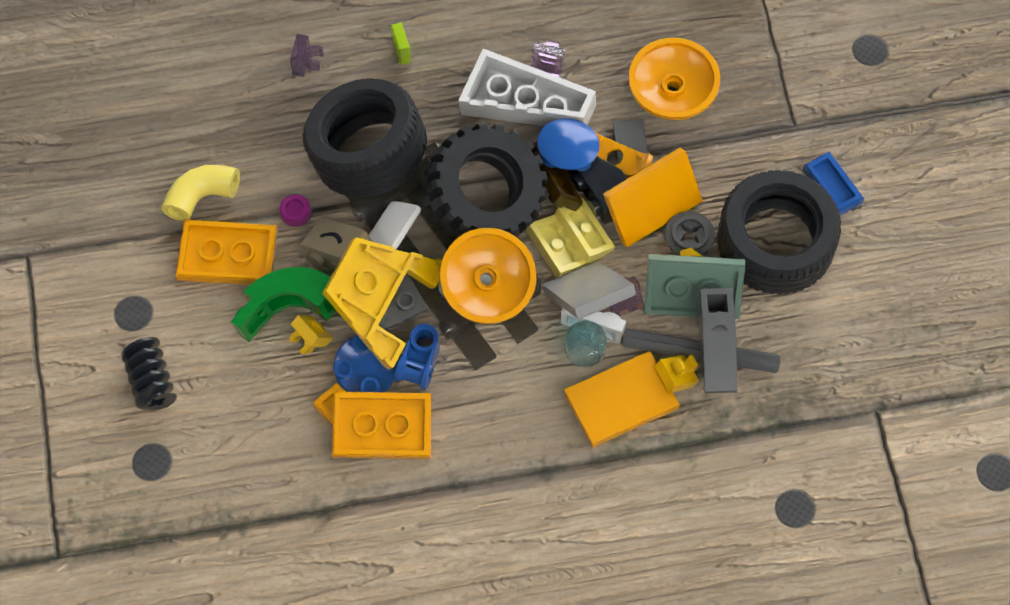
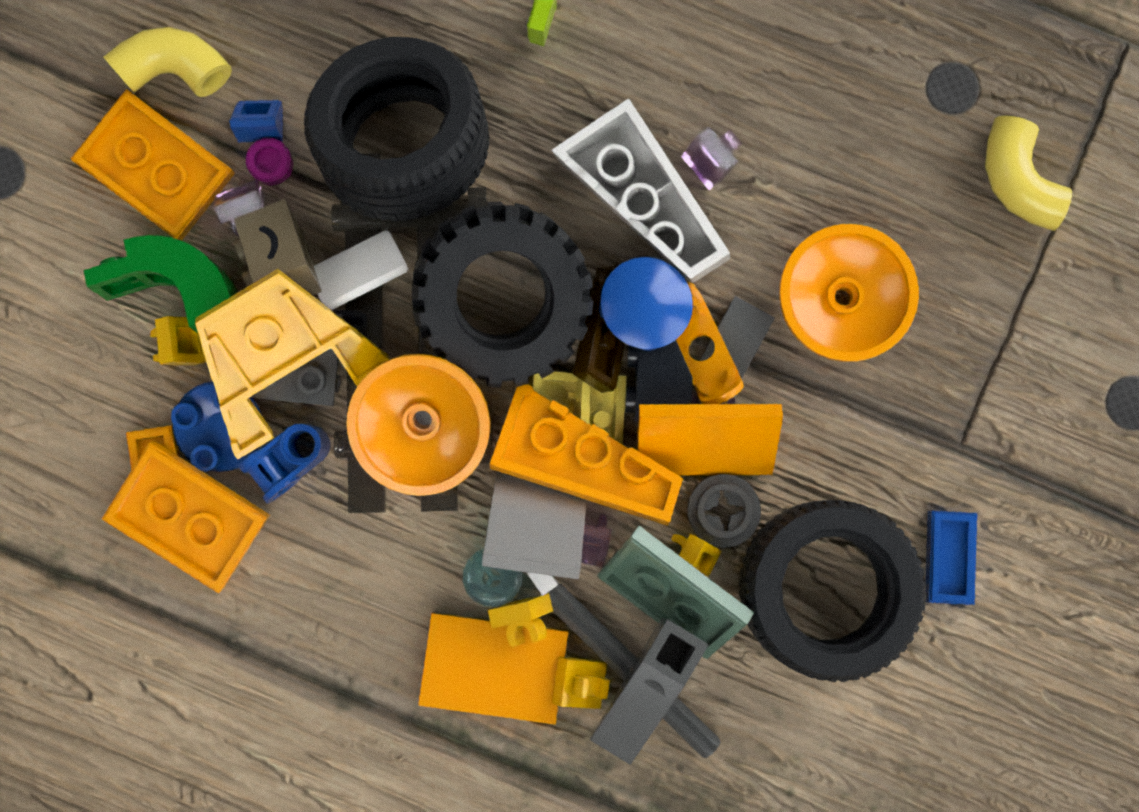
camera: 30 degrees right, 20 degrees up
(273, 192) = (257, 120): none -> blue slope
(293, 238) = (238, 202): none -> tile
(578, 252) = (568, 455): none -> light orange wing
(615, 351) = (522, 614): none -> yellow tile

